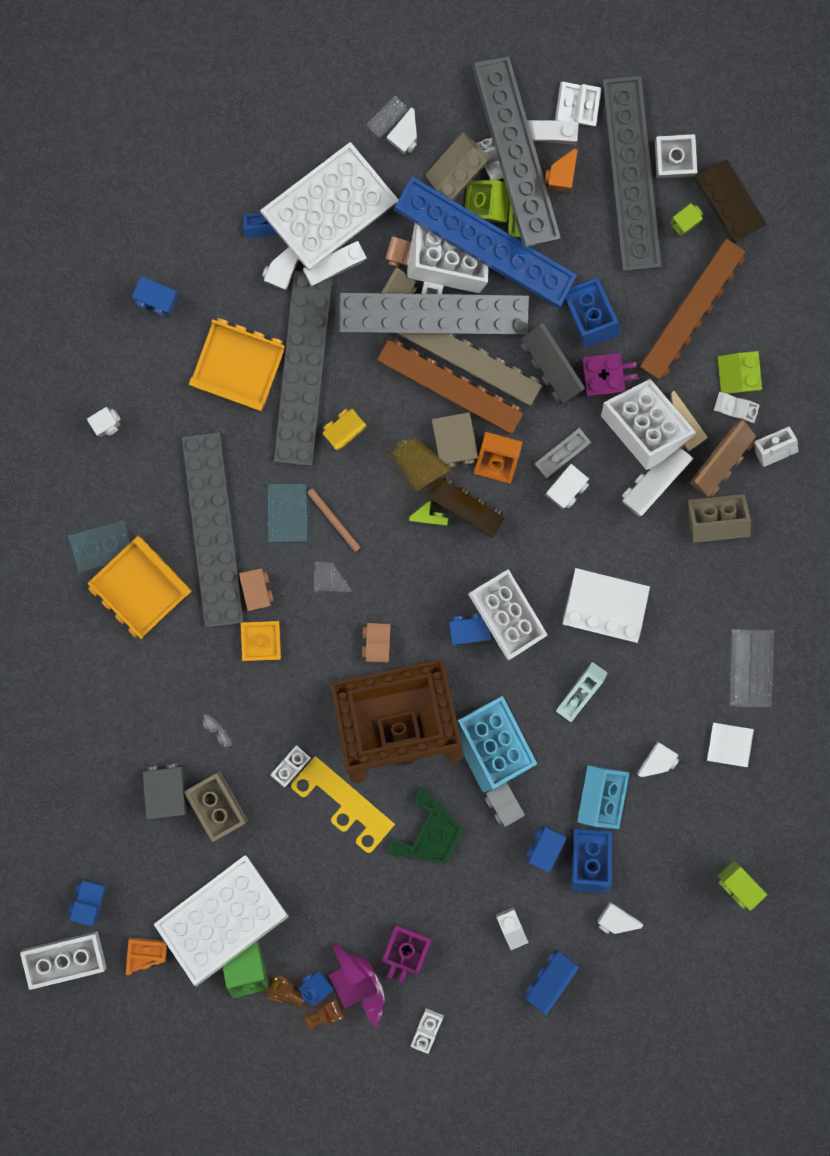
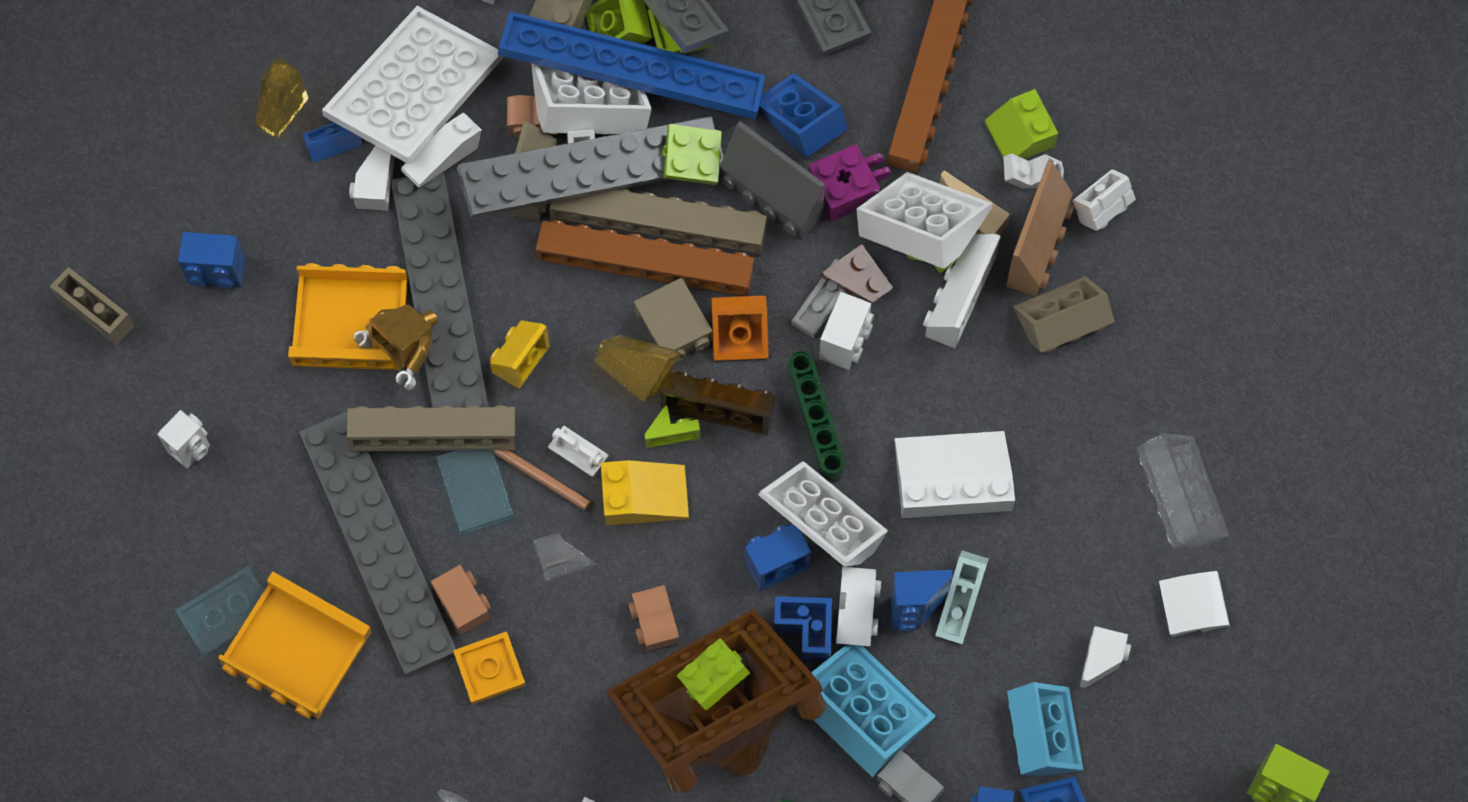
camera: 15 degrees left, 20 degrees down
(66, 303) = (92, 306): none -> dark tan brick
(233, 188) = (279, 97): none -> clear yellow slope
(268, 396) = (402, 336): none -> pearl gold torso
(269, 467) = (431, 428): none -> dark tan brick
(362, 509) = (577, 450): none -> white hinge
(397, 554) = (643, 492): none -> yellow slope
(400, 702) = (713, 674): none -> lime plate
(478, 678) = (806, 617): none -> blue brick
(505, 324) = (692, 154): none -> lime plate
(510, 679) = (856, 606): none -> white brick
(523, 546) = (816, 428): none -> dark green beam
(549, 690) = (917, 597): none -> blue slope
(590, 446) = (858, 275): none -> wing

